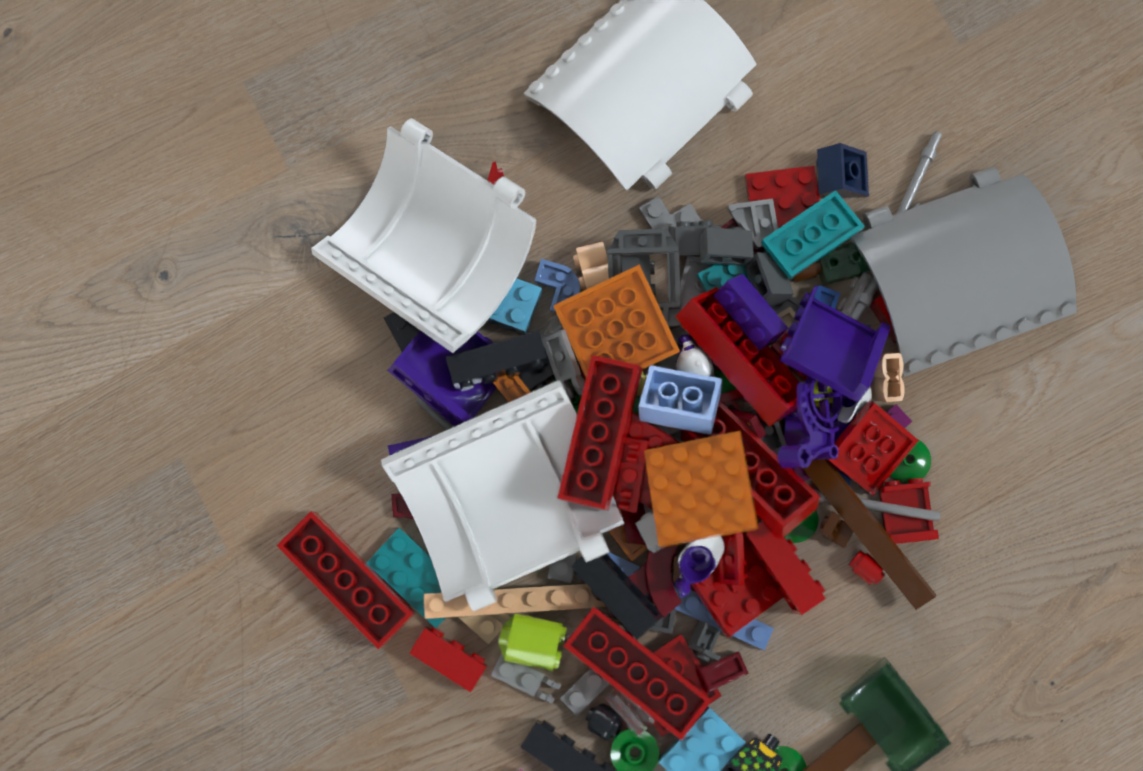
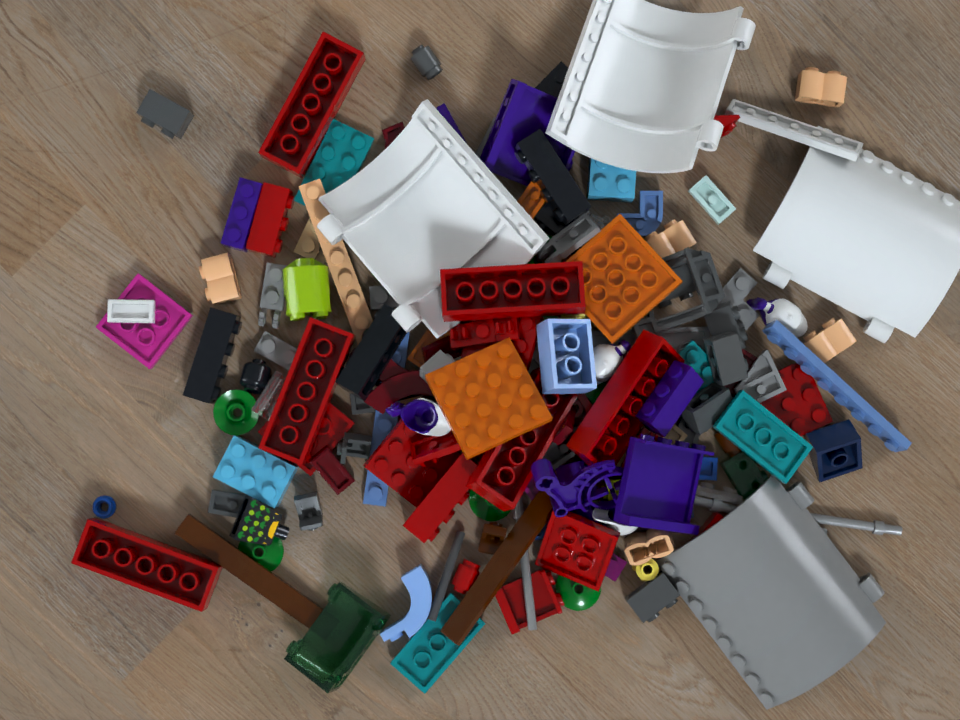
camera: 70 degrees right, 5 degrees up
(306, 735) = (165, 114): none -> dark grey brick
(339, 451) = (426, 62): none -> dark grey brick
(435, 685) = (241, 214): none -> dark purple brick
(488, 79) = (821, 88): none -> light nougat brick
(493, 728) = (220, 278): none -> light nougat brick
(522, 115) = (795, 130): none -> white tile
(564, 214) = (712, 200): none -> light aqua plate
(697, 184) = (783, 311): none -> white hair
(736, 147) = (830, 340): none -> light nougat brick
(757, 708) = (309, 511): none -> dark grey bracket
(782, 151) = (830, 381): none -> medium blue plate
(861, 587) = (446, 575): none -> dark grey bar
(872, 618) = (421, 594): none -> light blue arch
(915, 385) = (647, 576): none -> light yellow brick
(930, 627) = (429, 650): none -> teal plate
(937, 389) = (652, 597): none -> dark grey brick

